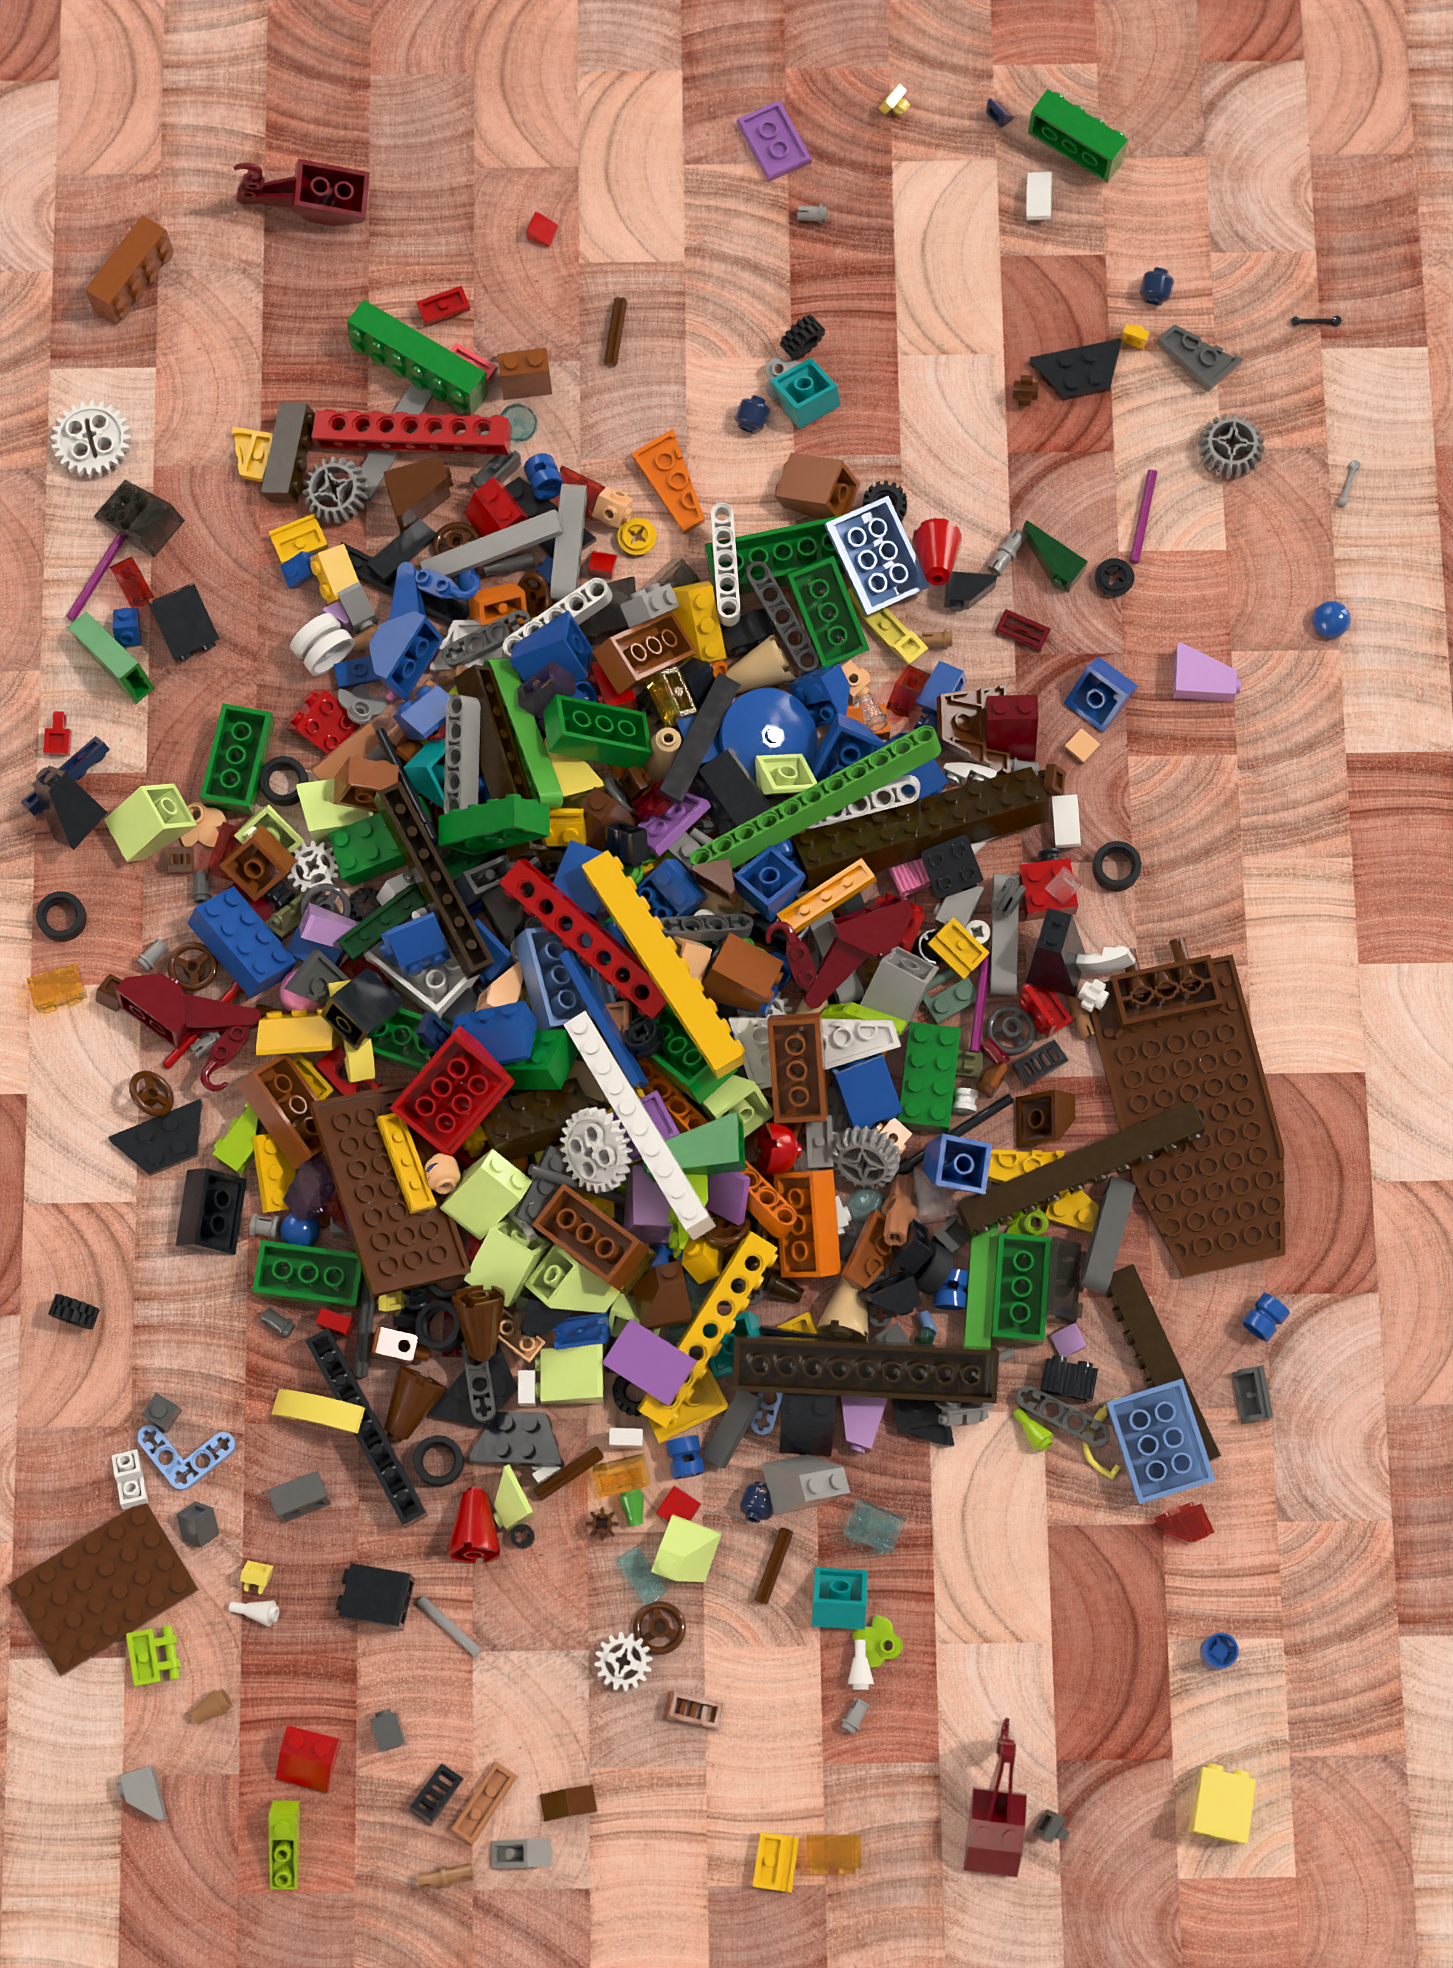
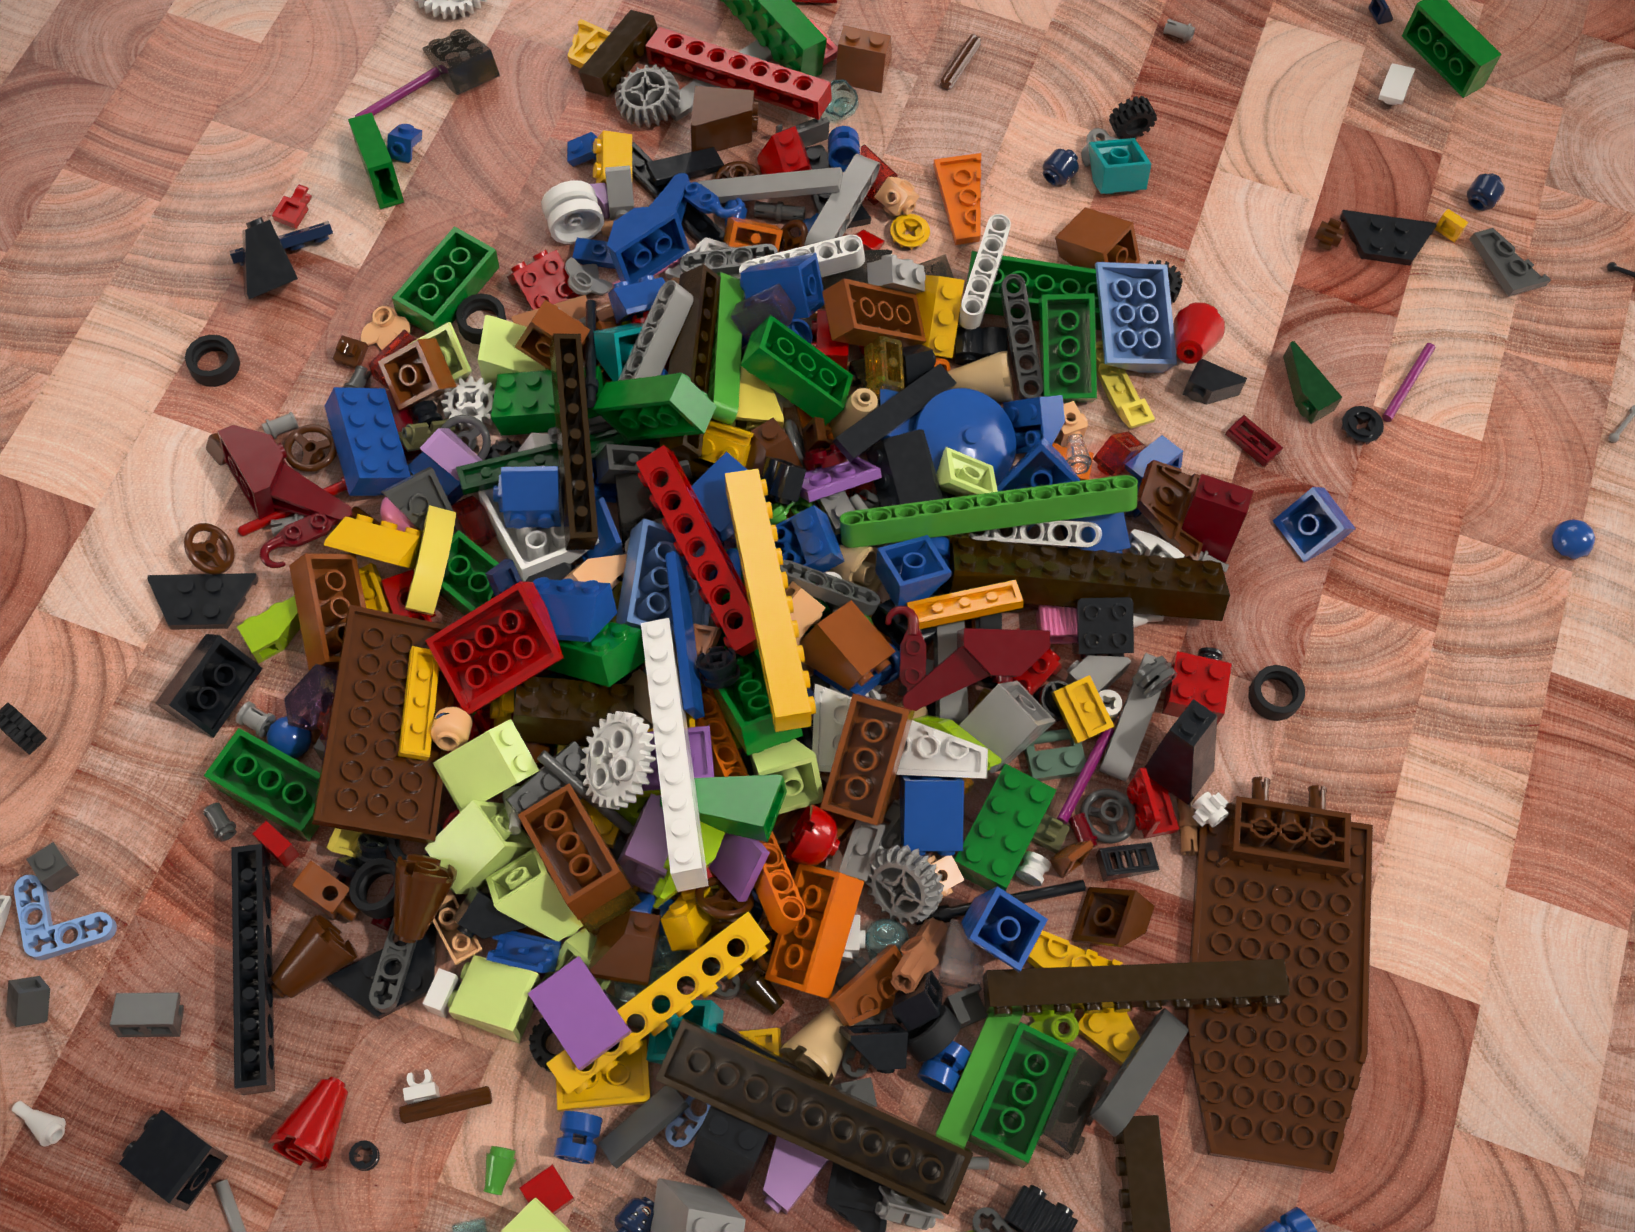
camera: 15 degrees right, 10 degrees down
(57, 988) = (173, 421): clear yellow brick -> none
(132, 582) = (426, 109): clear red slope -> none
(149, 821) = (336, 304): yellowish green slope -> none
(184, 622) = (455, 151): black slope -> none
(256, 1574) = (58, 1081): light yellow tile -> none
(273, 1173) = (287, 668): yellow wing -> none
(297, 537) = (593, 120): yellow plate -> none
(318, 1410) = (210, 928): light yellow slope -> none
(361, 1008) = (446, 534): black slope -> none
(364, 1333) = (311, 852): dark grey axle -> none
(420, 1452) = (299, 1016): black tyre -> none
(511, 1502) = (368, 1110): yellowish green slope -> none
(517, 1441) = (405, 1046): wing -> none
(602, 1516) = (446, 1174): reddish brown gear -> none
(621, 1475) = (499, 1129): clear yellow brick -> none
(626, 1438) = (523, 1090): white piece -> none
(717, 878) = (859, 543): reddish brown slope -> none
(928, 1330) = (903, 1101): arm -> none
(937, 639) = (1167, 417): medium nougat pin -> none
(1006, 552) = (1263, 365): light grey pin -> none
(1054, 779) = (1239, 585): reddish brown tile -> none
(1063, 885) = (1216, 686): clear slope -> none
(1066, 821) = (1238, 630): white slope -> none
(1068, 1340) = (1054, 1175): lavender slope -> none
(1082, 746) = (1278, 566): light nougat tile -> none
(1111, 960) = (1242, 780): white slope -> none
(1203, 677) = (1424, 545): lavender slope -> none
(1250, 445) = (1517, 349): light grey gear -> none

